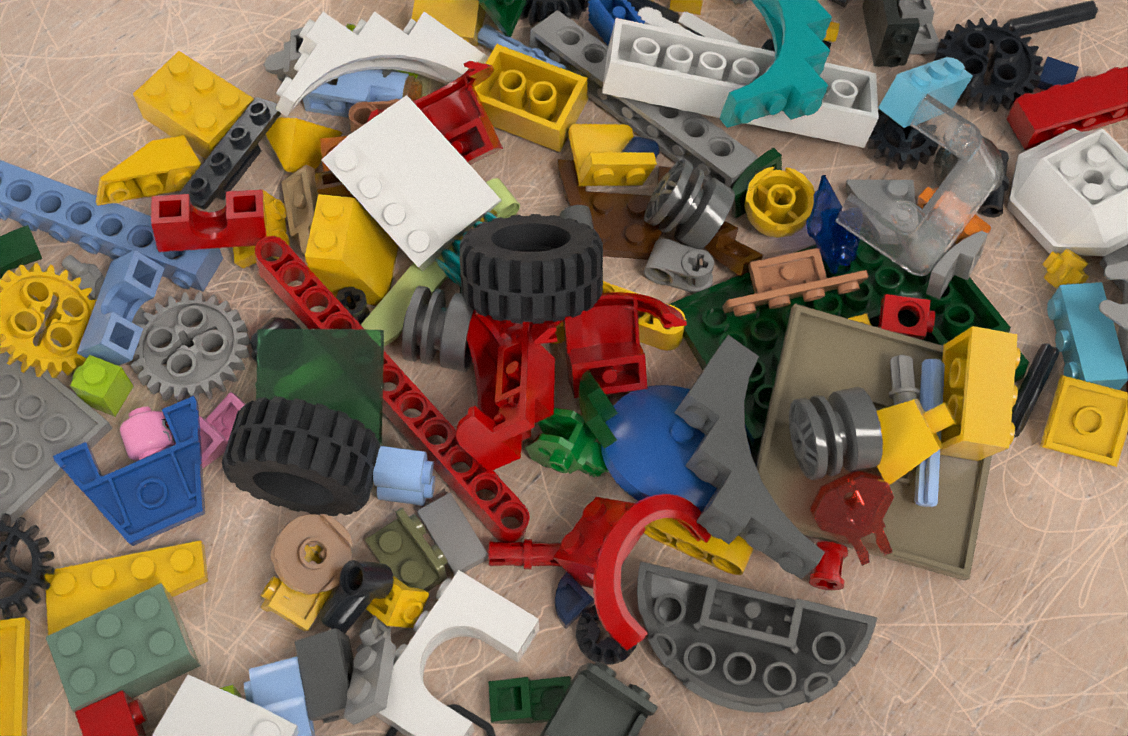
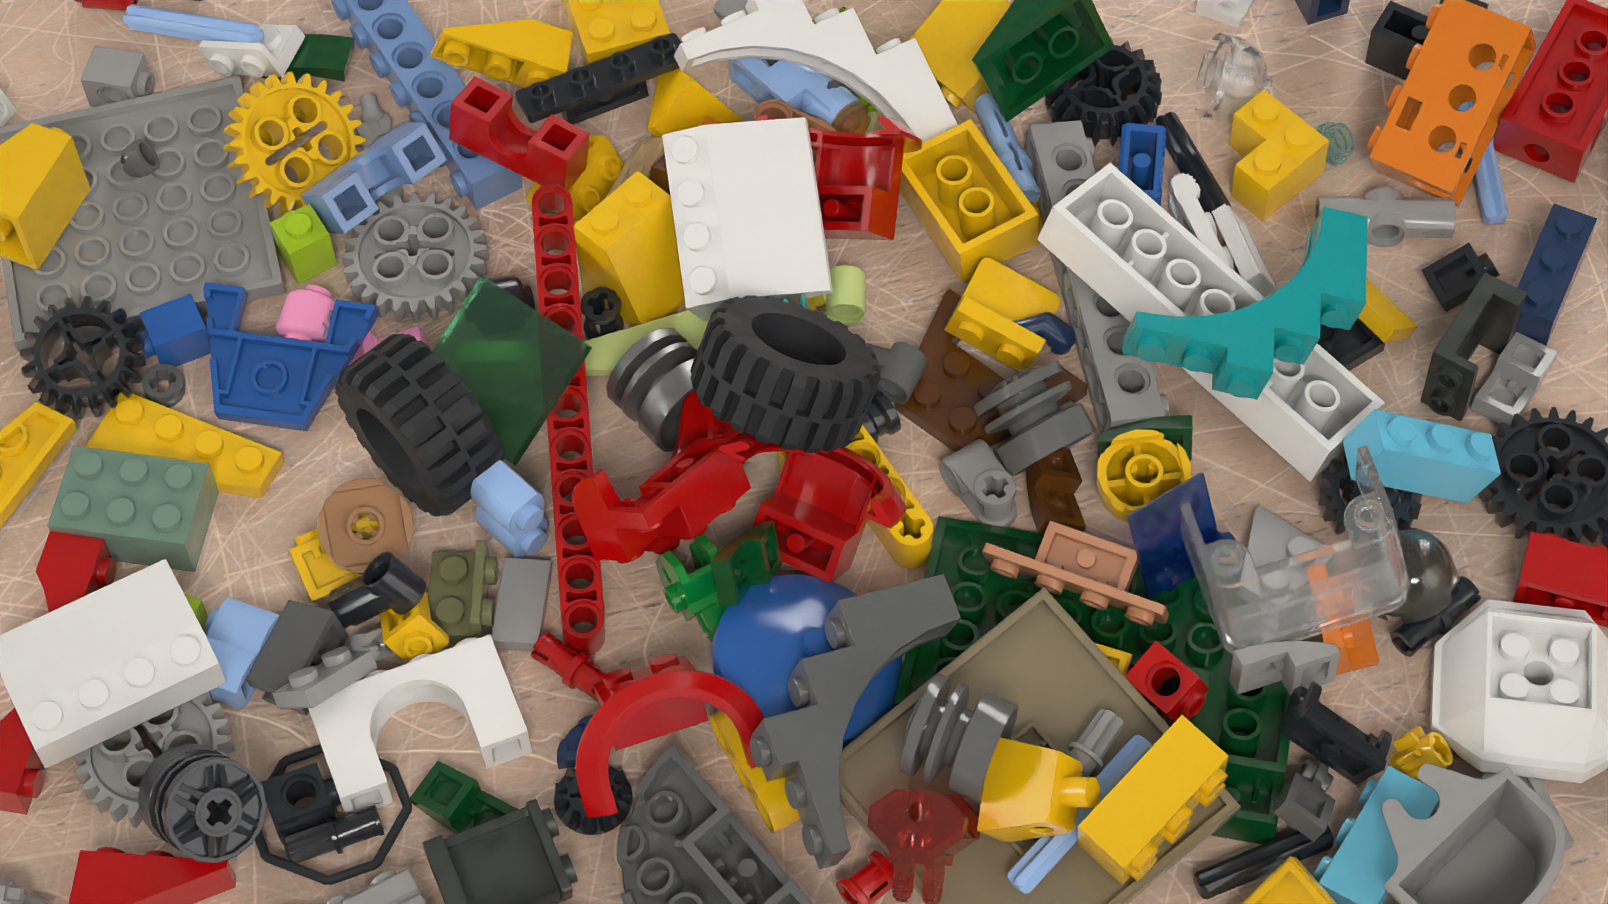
camera: 40 degrees right, 5 degrees down
(54, 505) = (175, 332): none -> blue brick
(66, 538) = (159, 373): none -> dark grey bush
(1013, 290) = (1332, 737): none -> black hinge
(1033, 340) = (1304, 799): none -> dark grey plate

